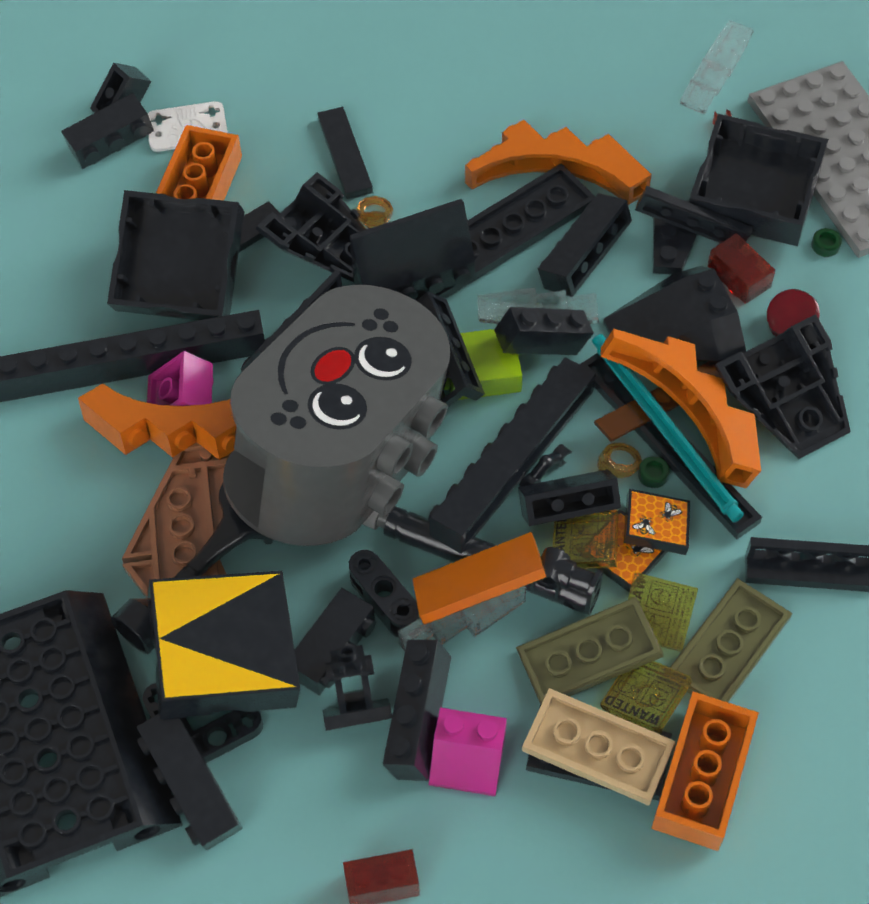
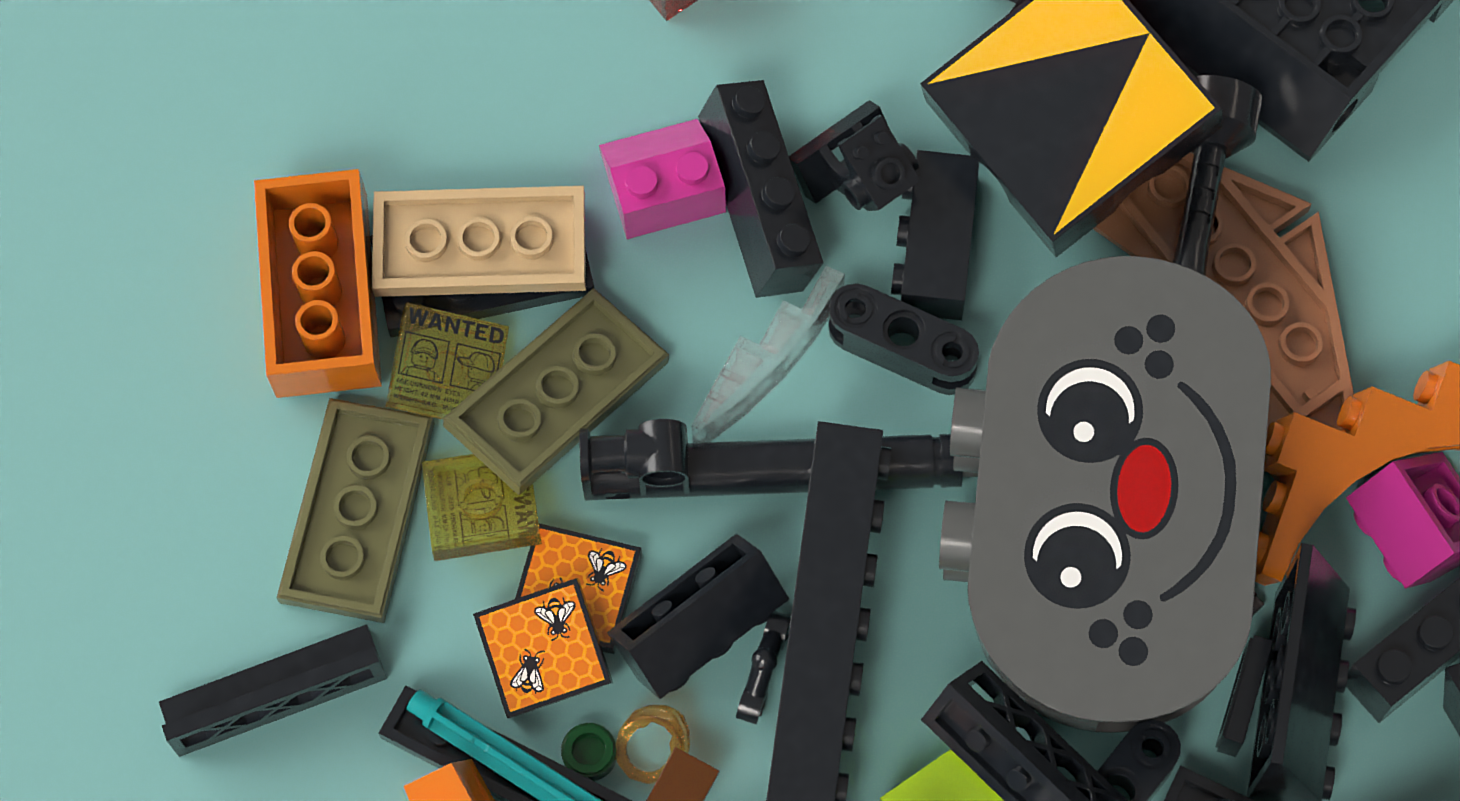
camera: 155 degrees right, 10 degrees up
(478, 578) = (764, 391): orange tile -> none
(589, 539) = (635, 554): clear yellow tile -> none

